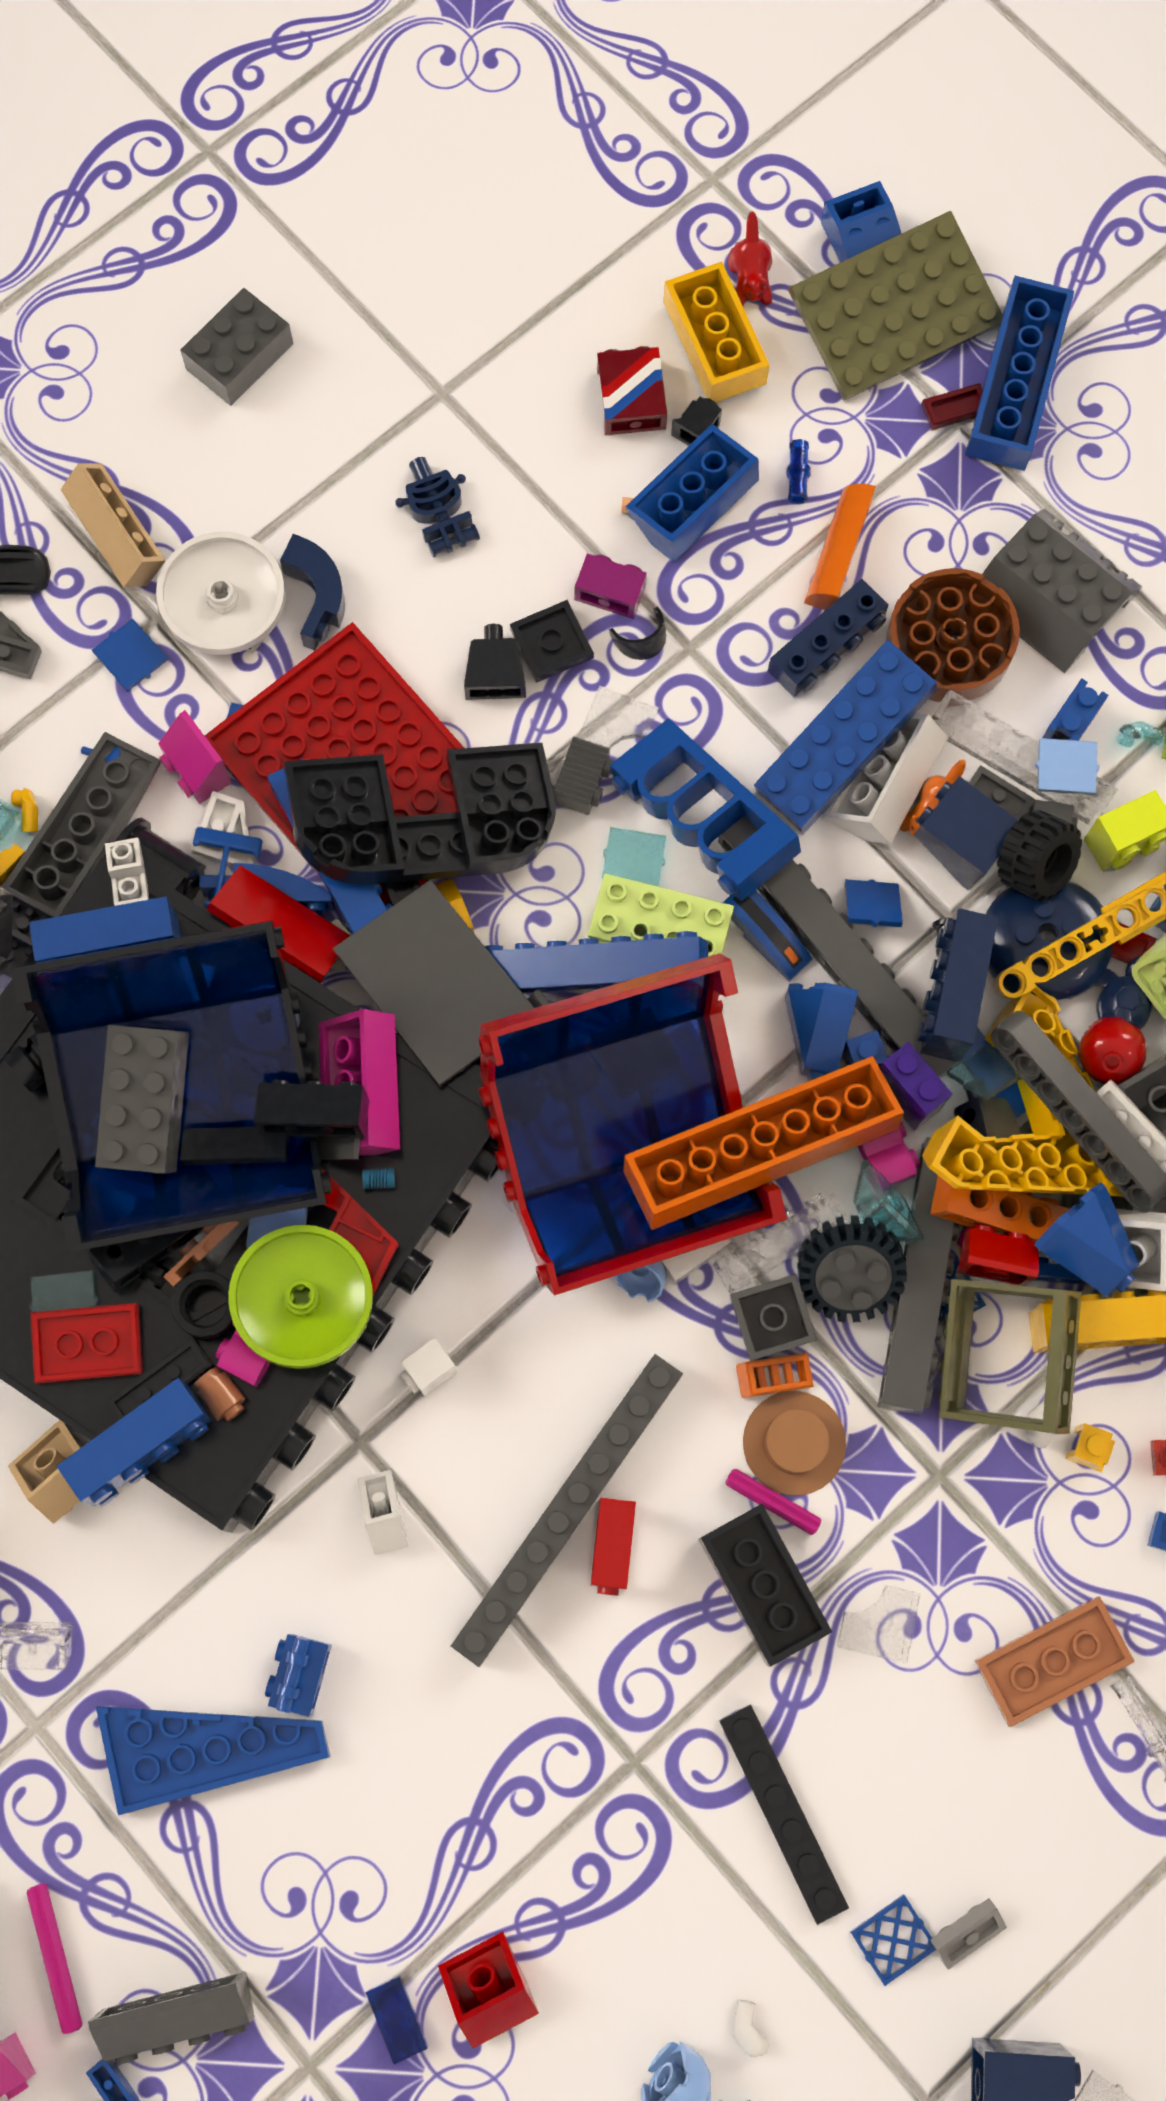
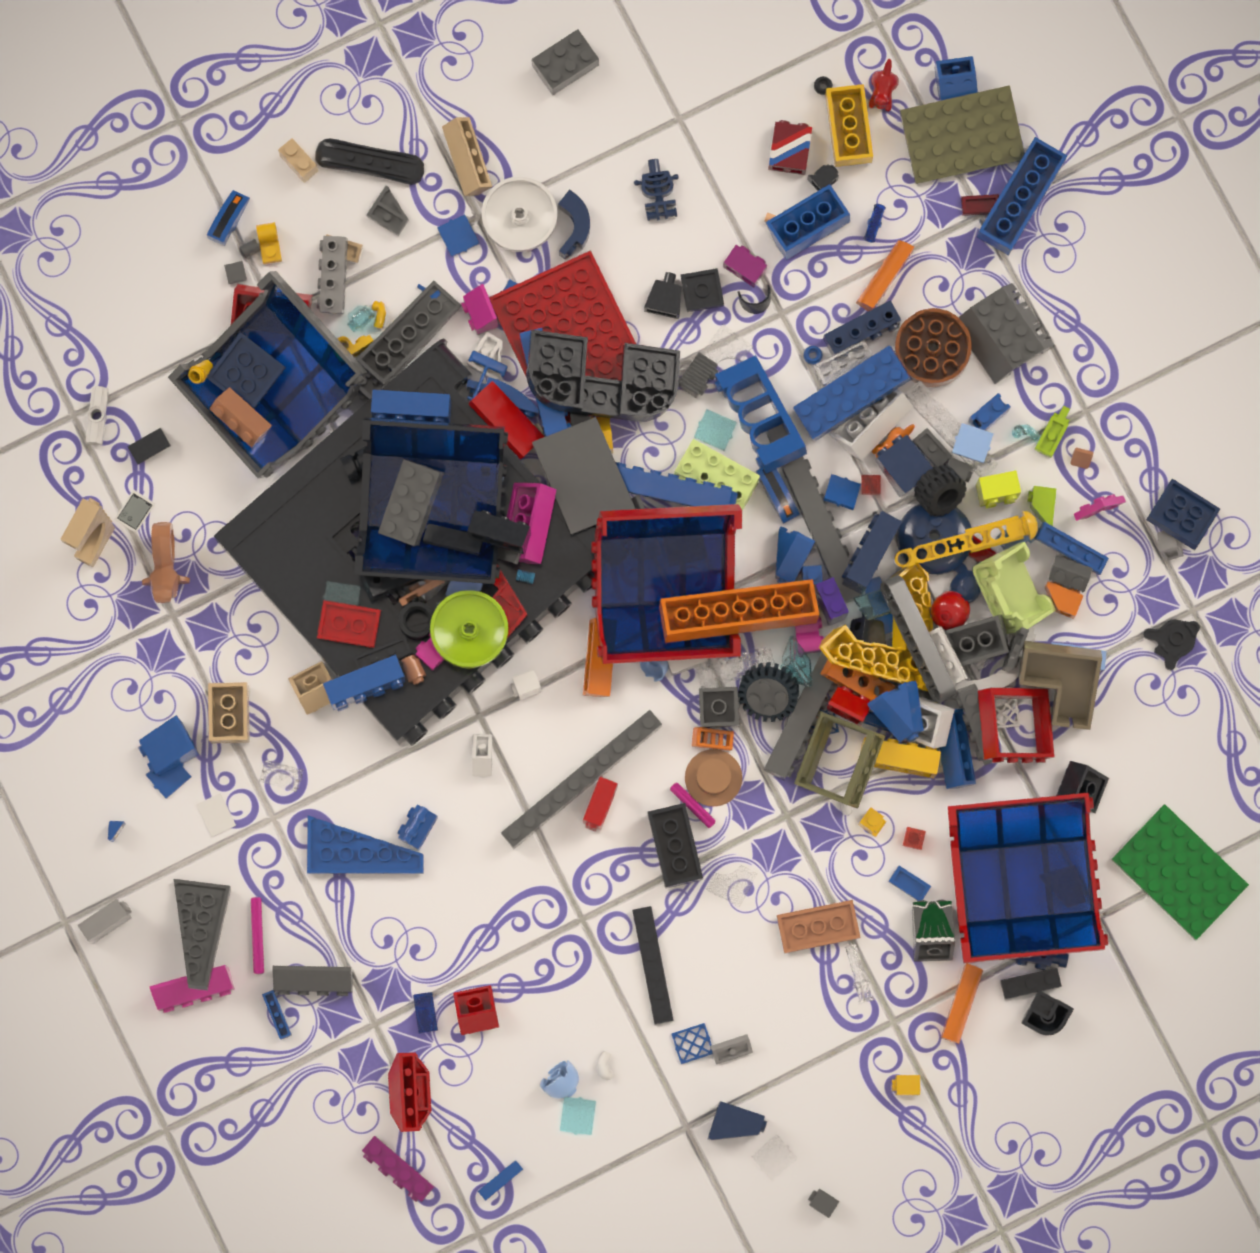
camera: 15 degrees right, 5 degrees up
(127, 871) = (429, 372): white slope -> none
(546, 1317) = (597, 675): none -> orange brick
(653, 280) = (822, 80): none -> black plate
(764, 691) = (813, 349): none -> blue plate
(811, 696) = (841, 363): none -> clear brick
(915, 880) = (870, 484): none -> clear red plate

